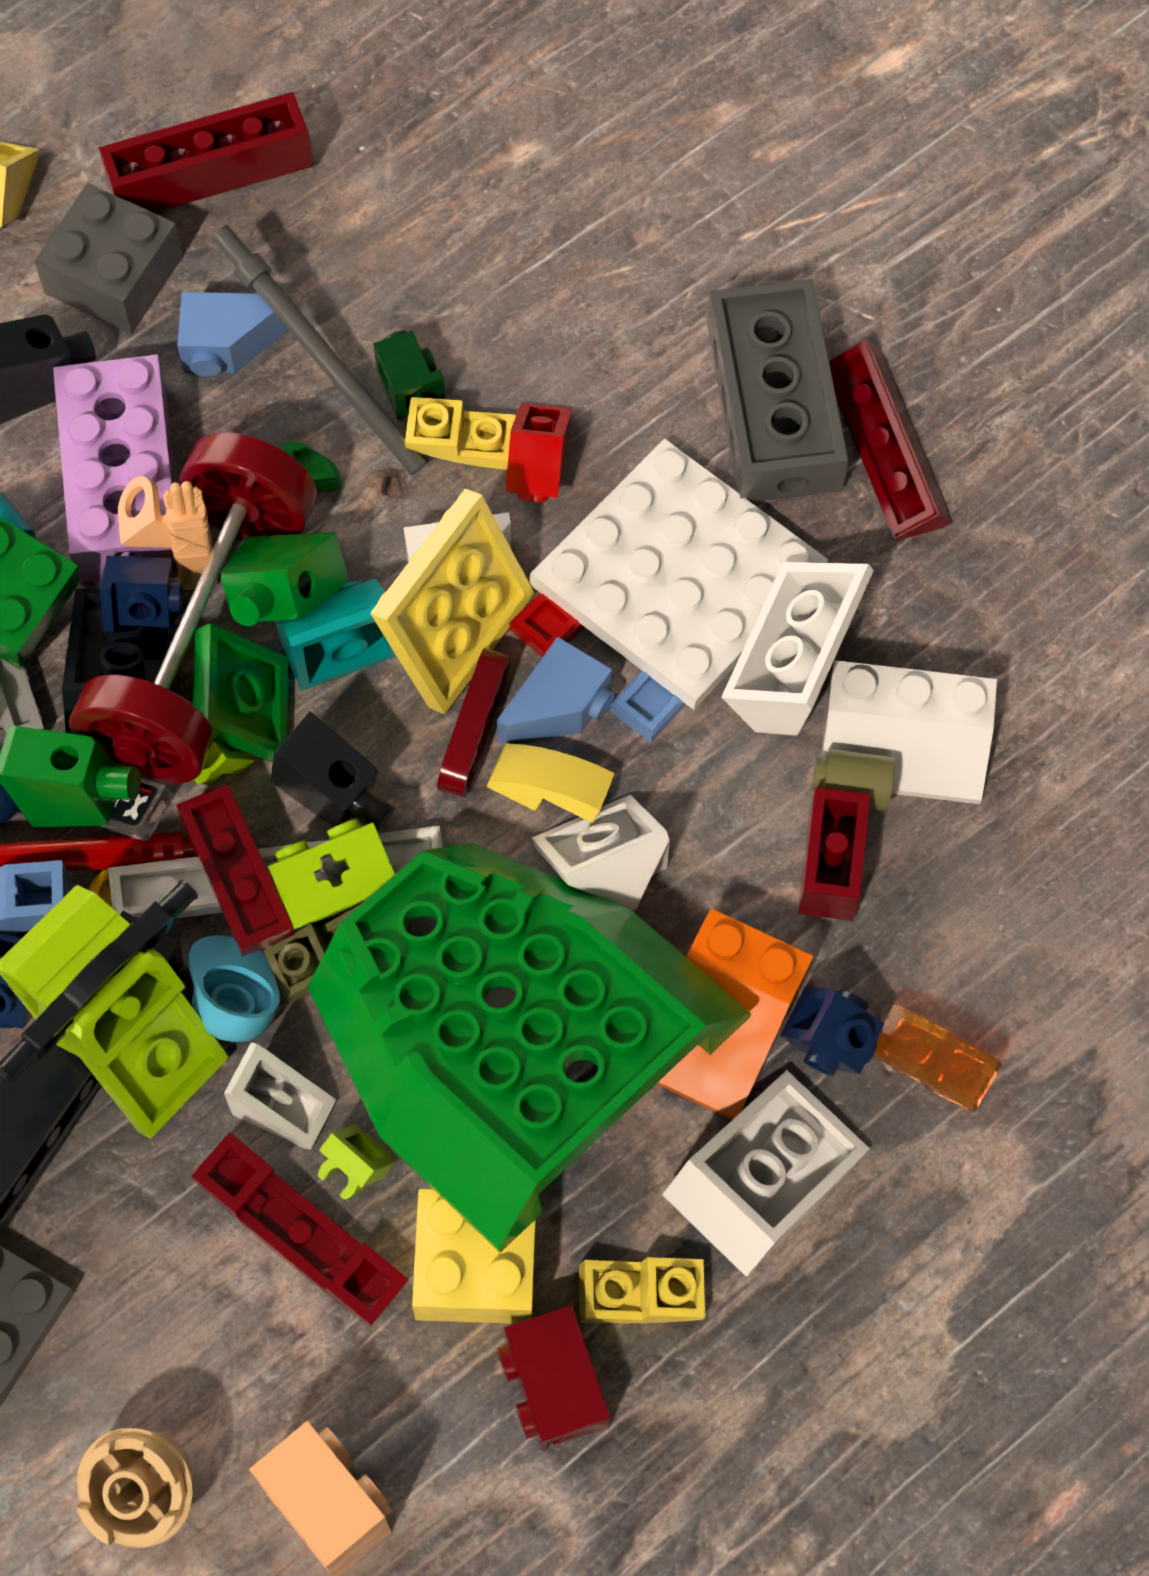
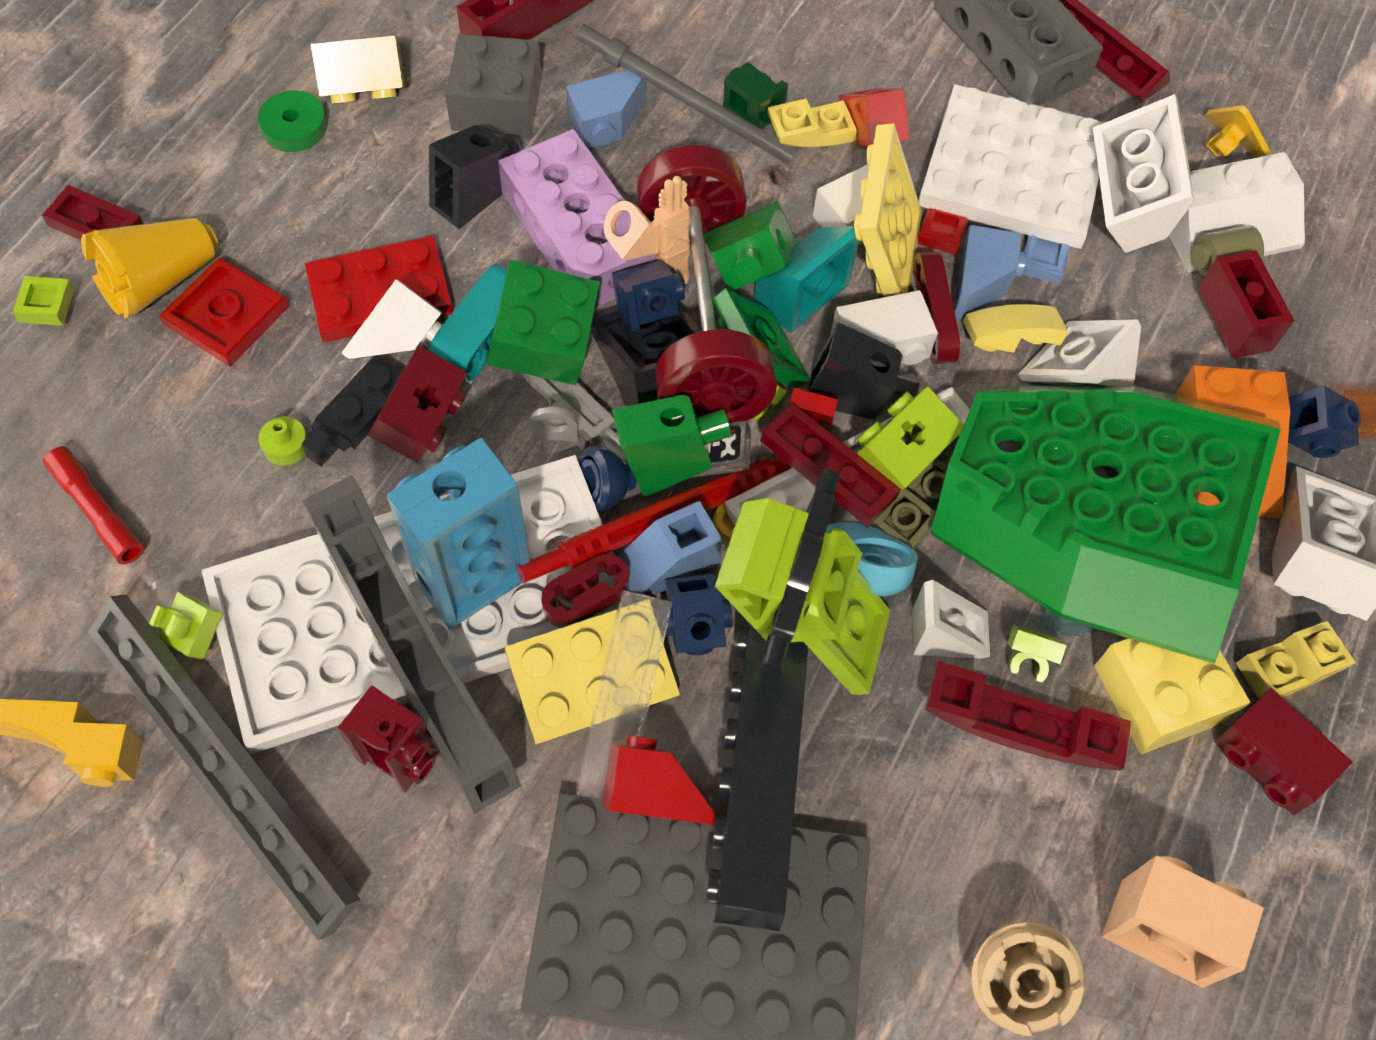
camera: 25 degrees left, 5 degrees down
(261, 798) = (816, 406): none -> red tile
(402, 729) = (896, 321): none -> white slope
(975, 624) = (1236, 128): none -> yellow piece

